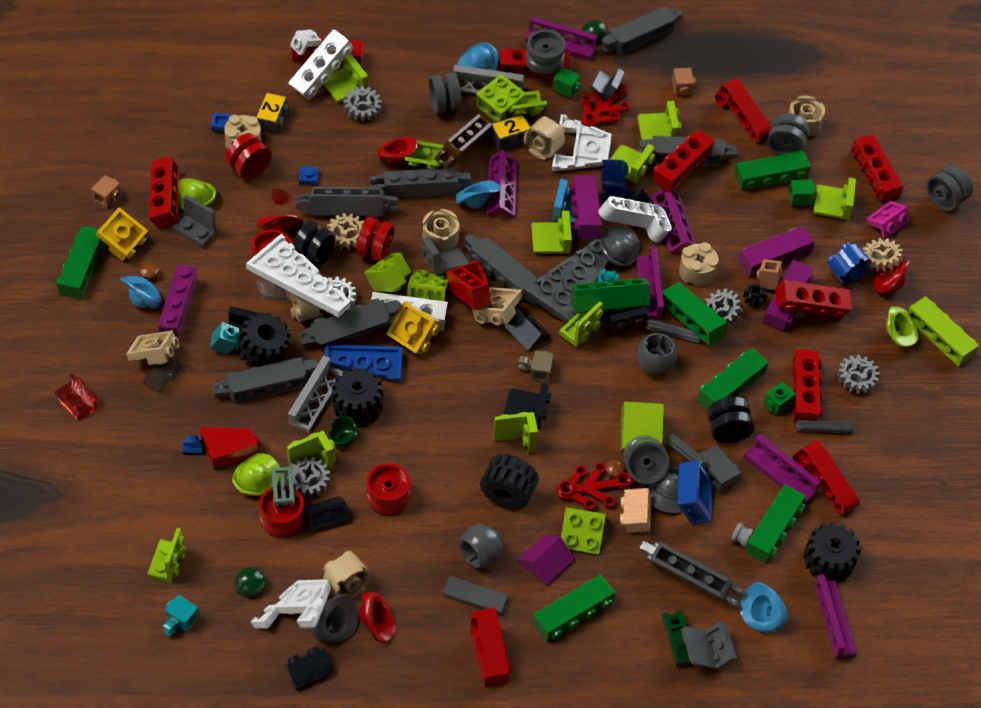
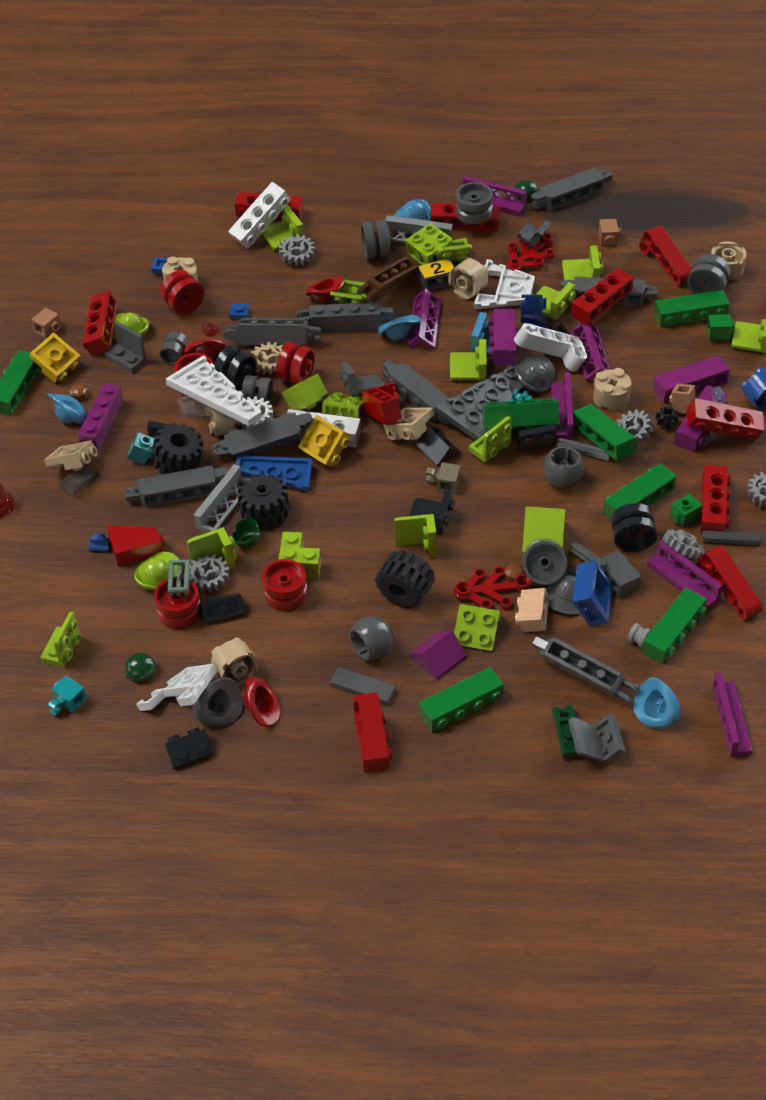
camera: 10 degrees right, 5 degrees down
(245, 220) = (173, 347): none -> dark grey wheel
(272, 112) = (210, 257): brick -> none
(304, 39) = (245, 193): white bracket -> none
(331, 265) = (254, 387): none -> dark grey wheel
(392, 453) = (293, 549): none -> lime brick
(441, 228) = (361, 356): tan brick -> none
(566, 82) = (494, 232): green brick -> none
(780, 436) = (684, 543): none -> light grey gear
(805, 273) = (718, 395): none -> clear light blue tile
(832, 551) = (731, 651): black wheel -> none

